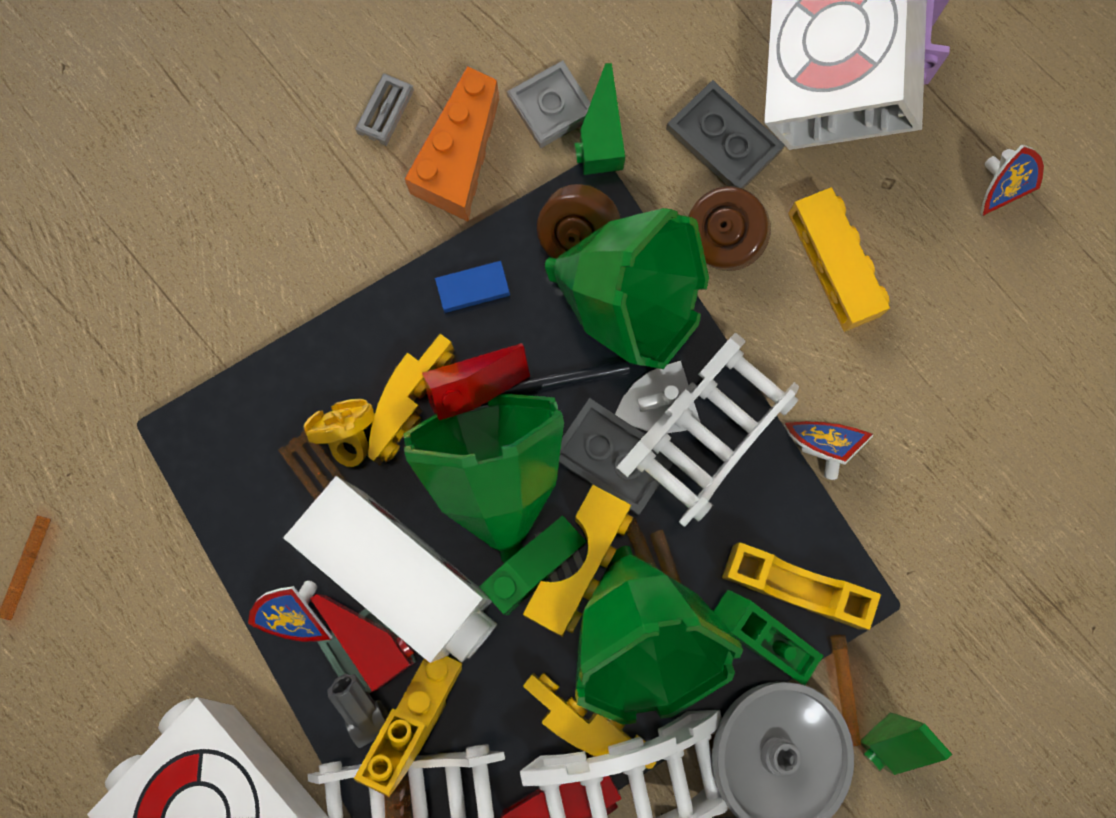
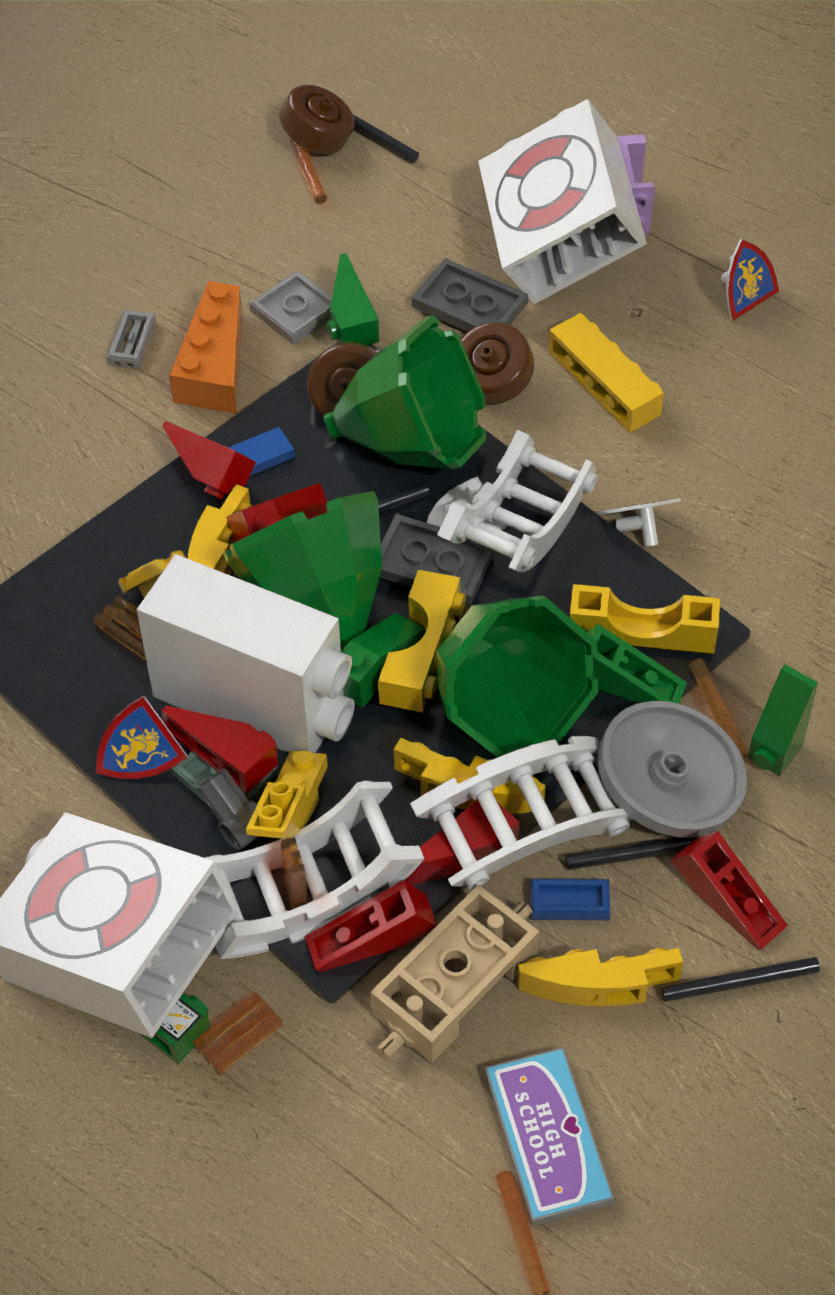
camera: 15 degrees left, 25 degrees down
(421, 291) = (210, 461): none -> red slope

